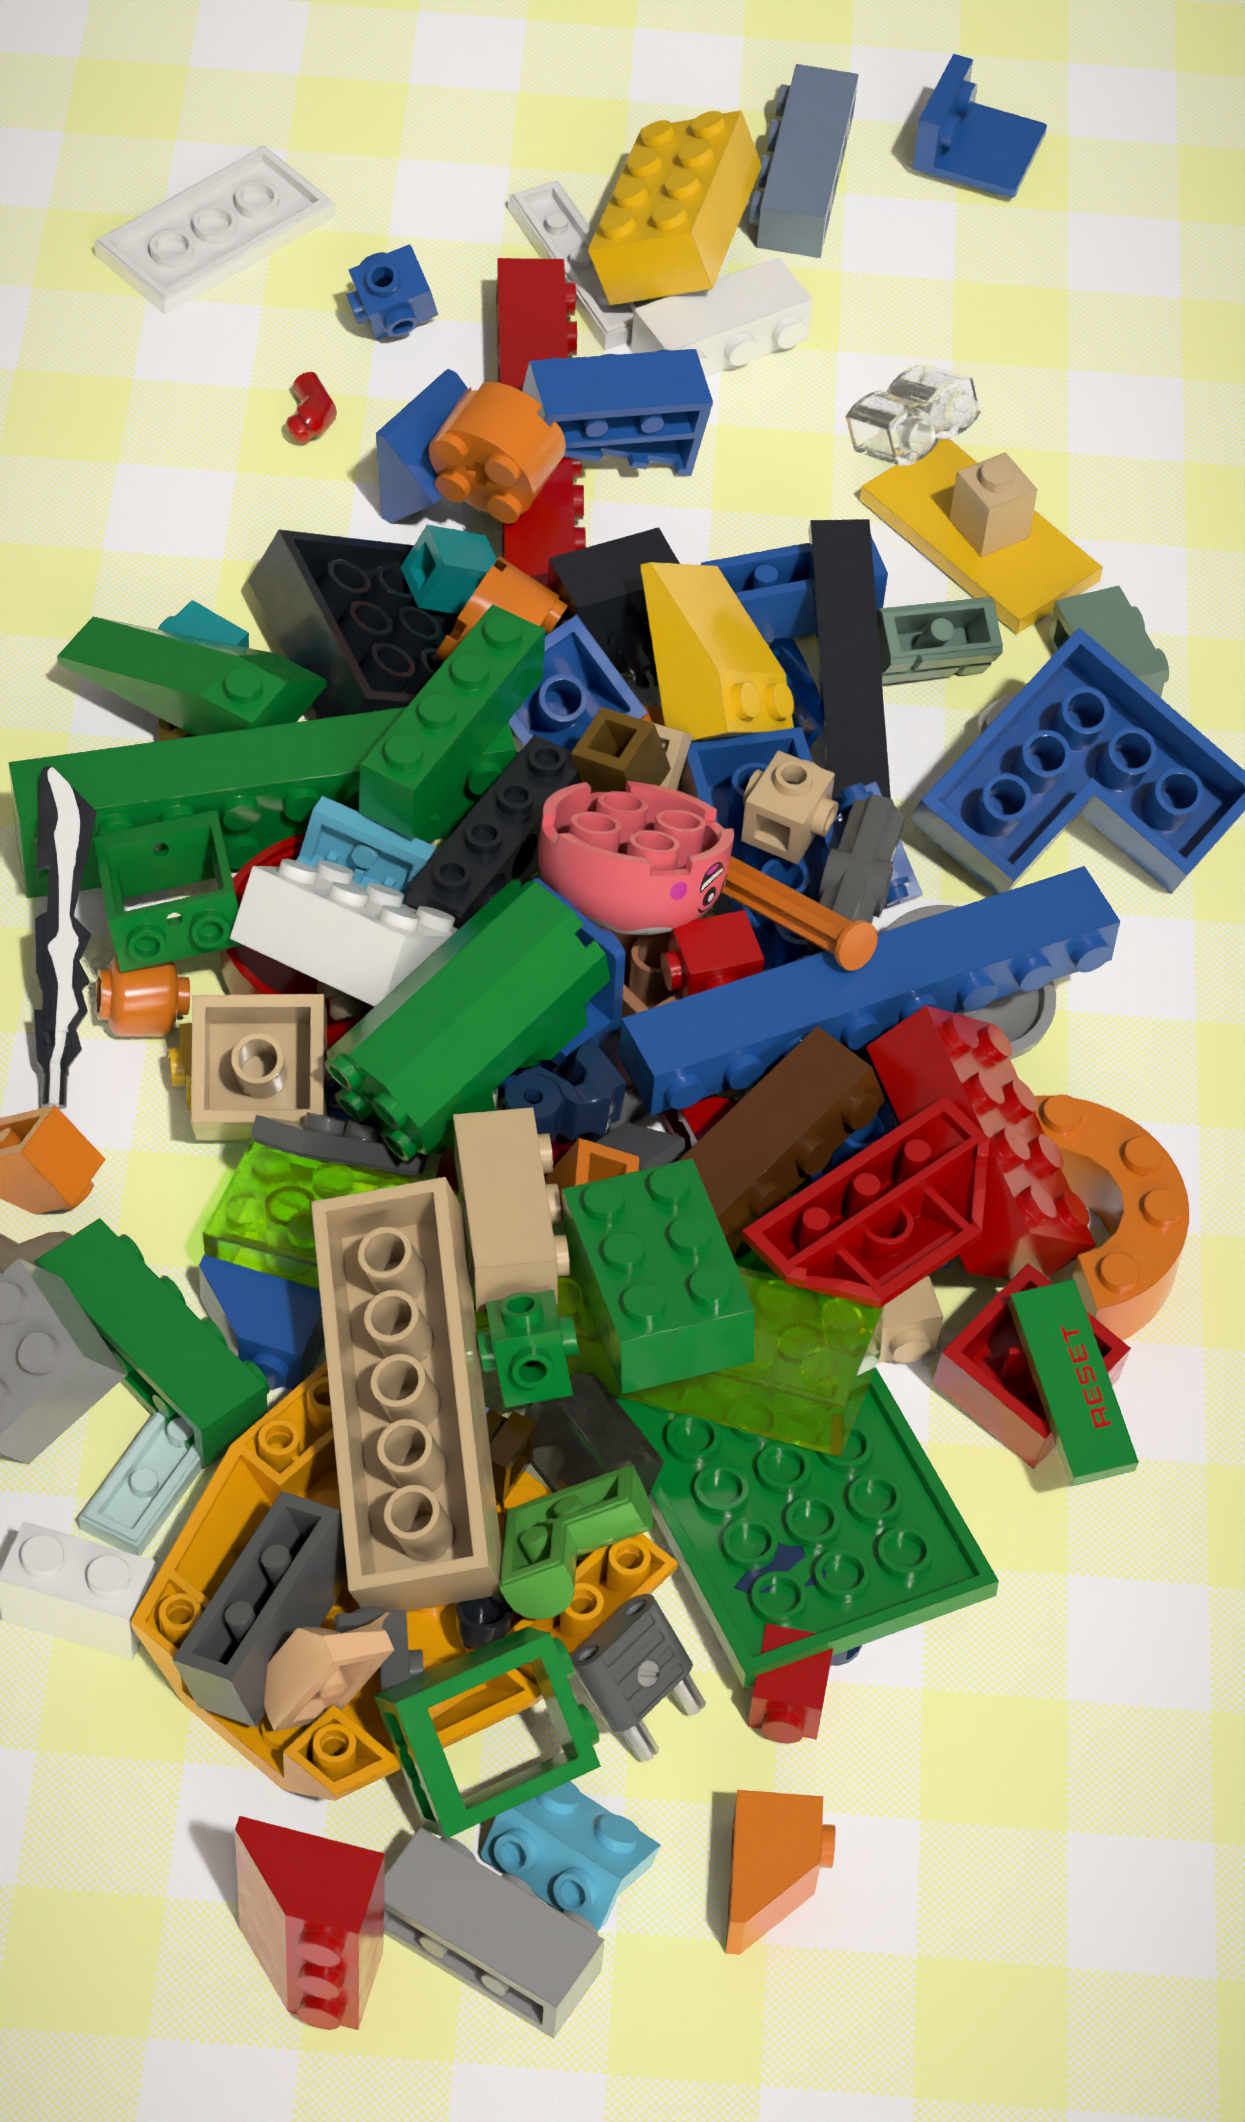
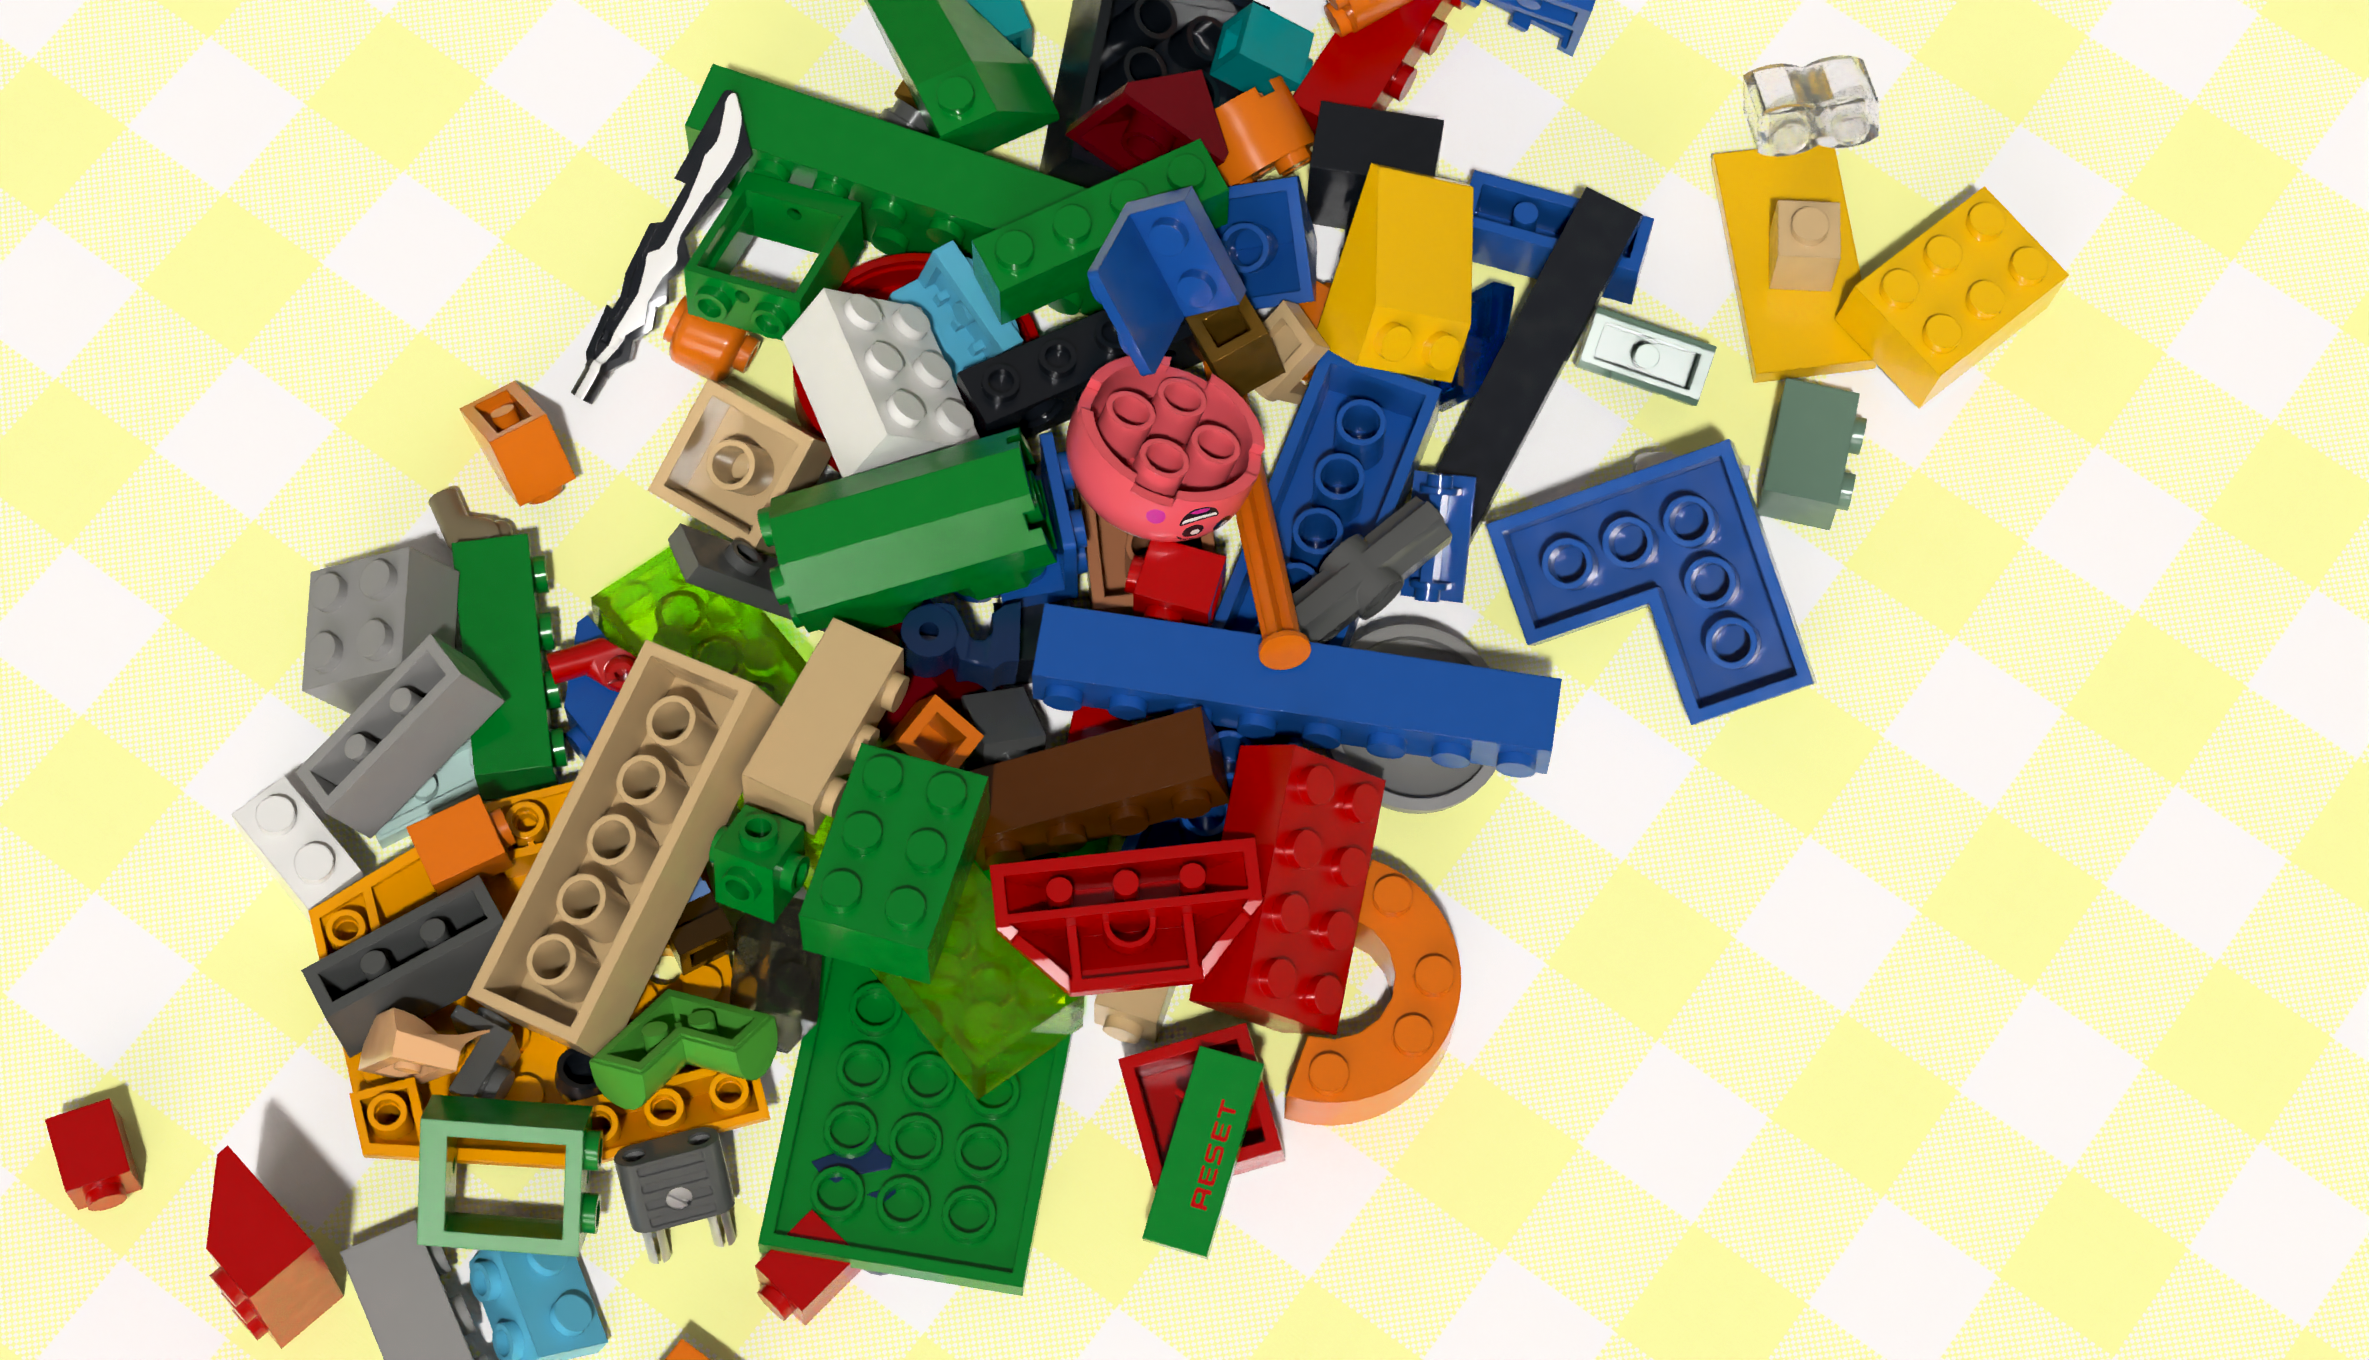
camera: 35 degrees right, 15 degrees up
(64, 1954) = (93, 1156): none -> red brick
(115, 1425) = (400, 736): none -> light grey brick
(242, 1480) = (463, 843): none -> orange brick
(247, 1279) = (596, 659): none -> red arm
(420, 633) = (1151, 120): none -> dark red slope
(543, 704) = (1159, 269): none -> blue bracket
(788, 806) = (1350, 470): tan brick -> none
(1129, 492) = (1951, 297): none -> yellow brick

